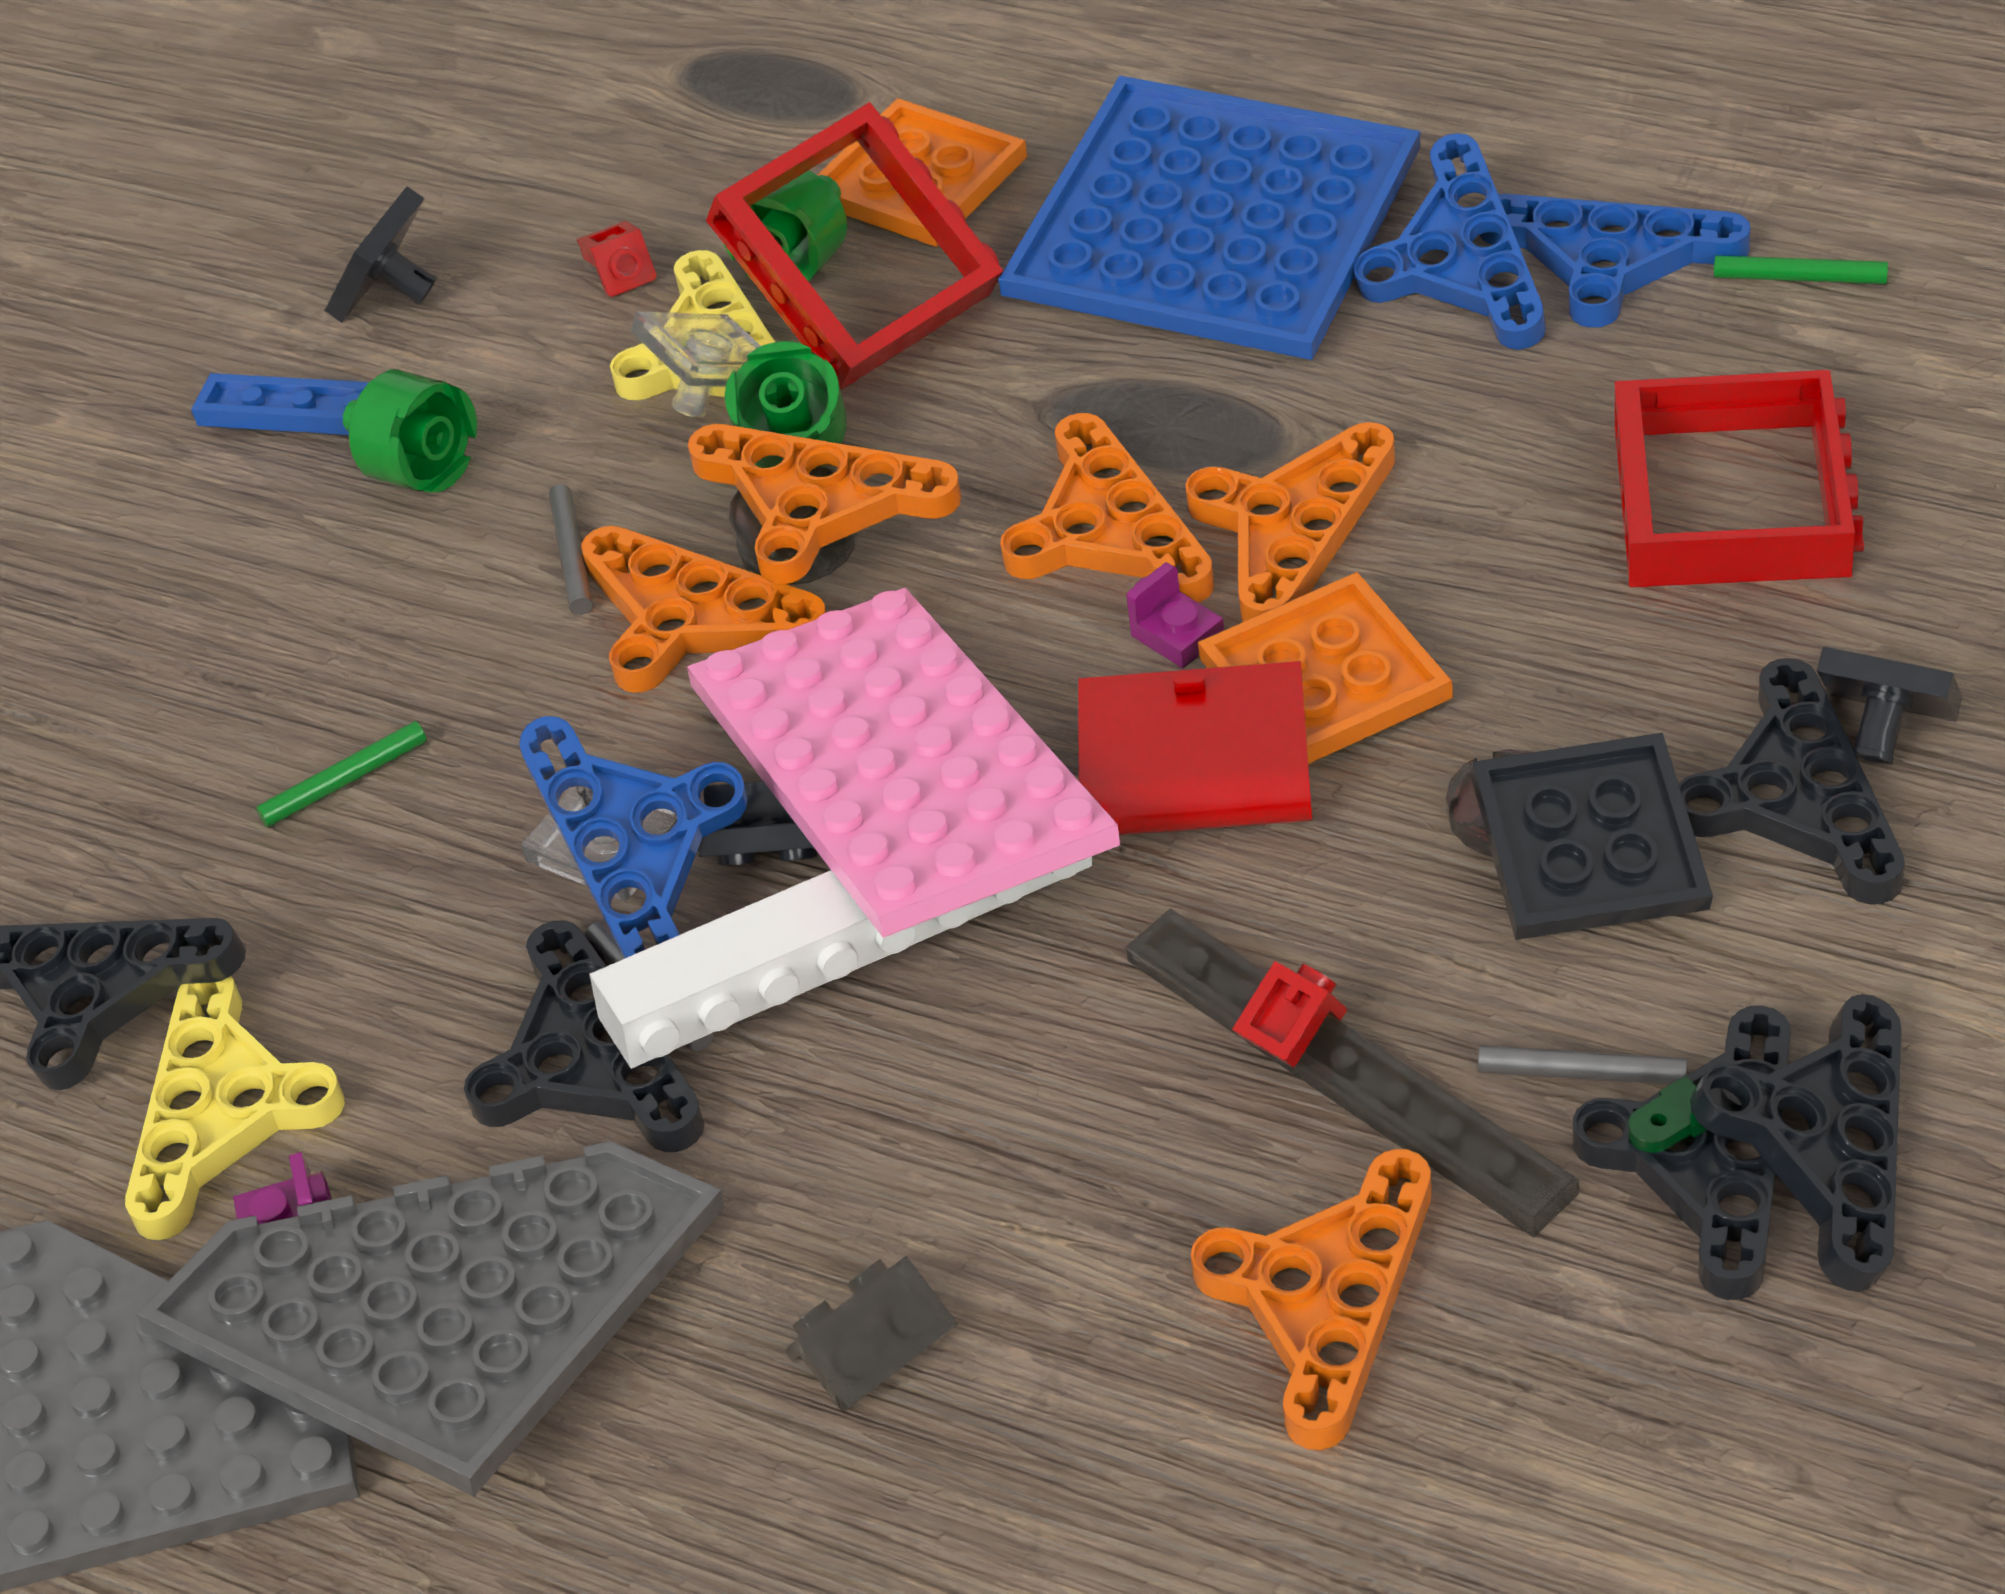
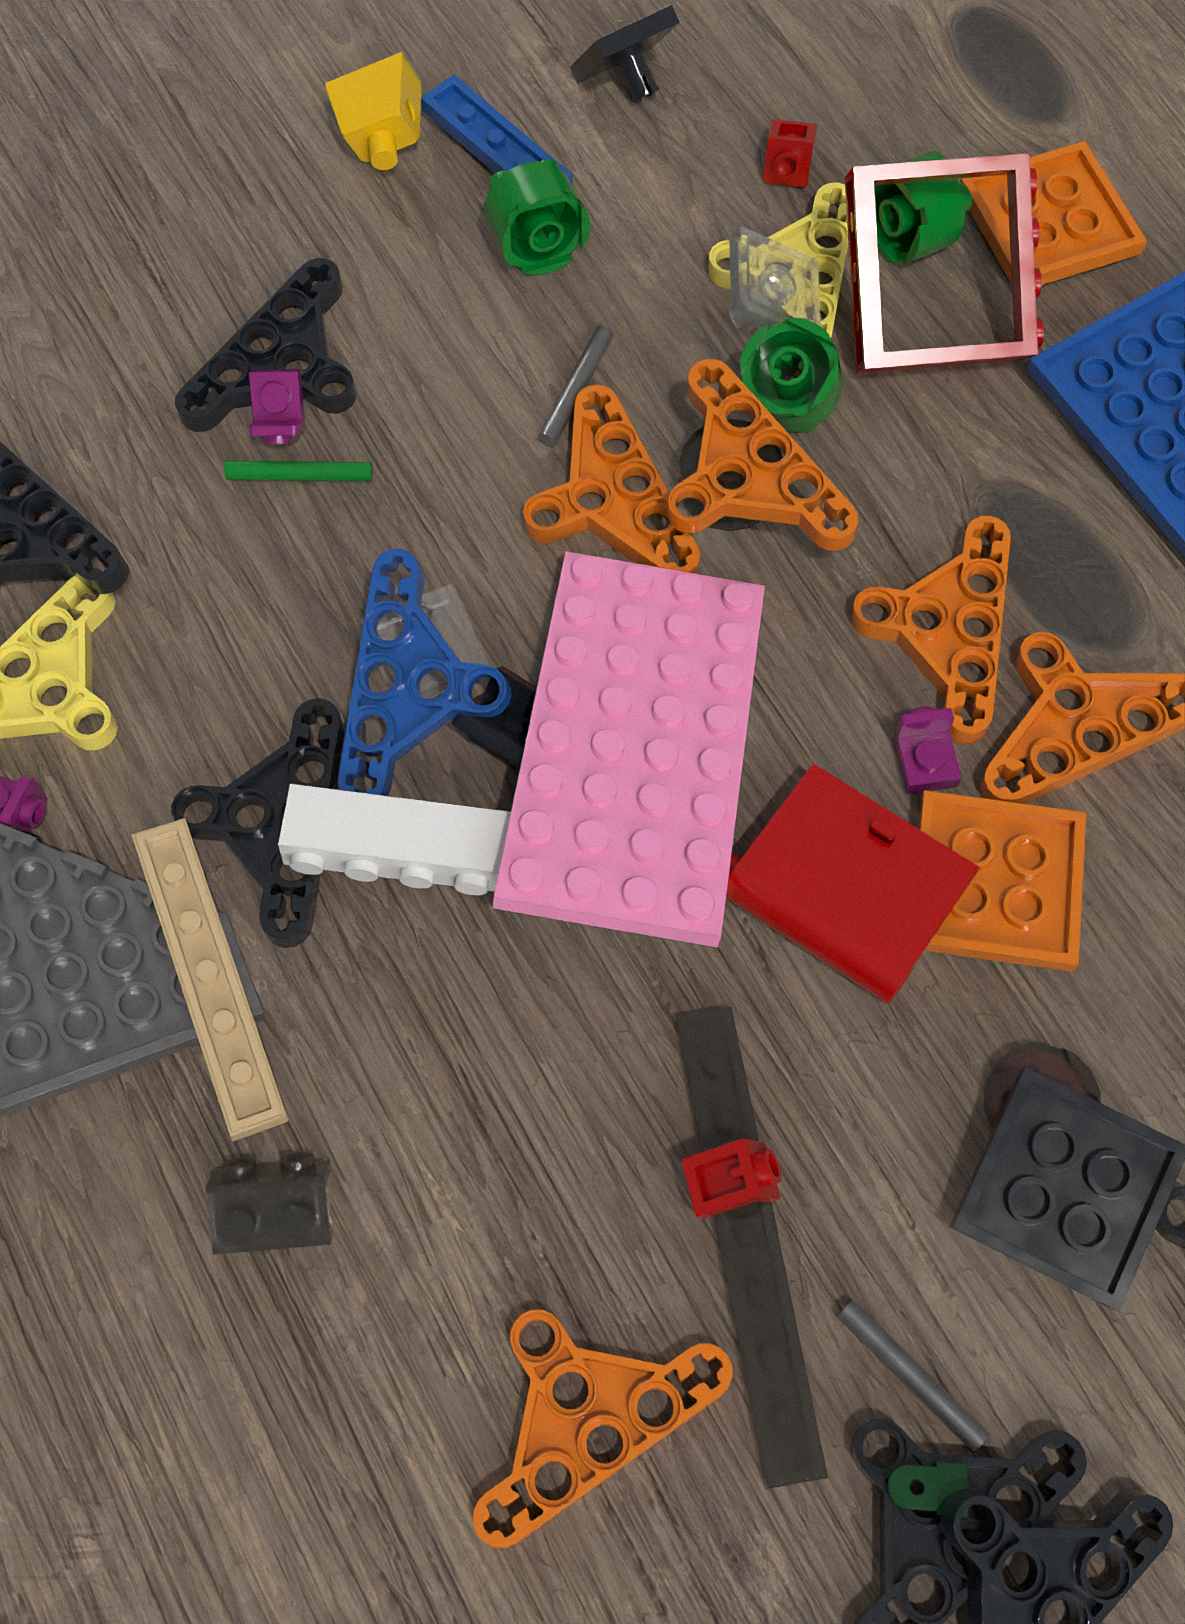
camera: 30 degrees right, 20 degrees up
(155, 441) = (378, 109): none -> yellow torso
(228, 718) = (292, 340): none -> black beam
(271, 726) = (276, 405): none -> magenta bracket
(643, 1190) = (209, 980): none -> tan tile

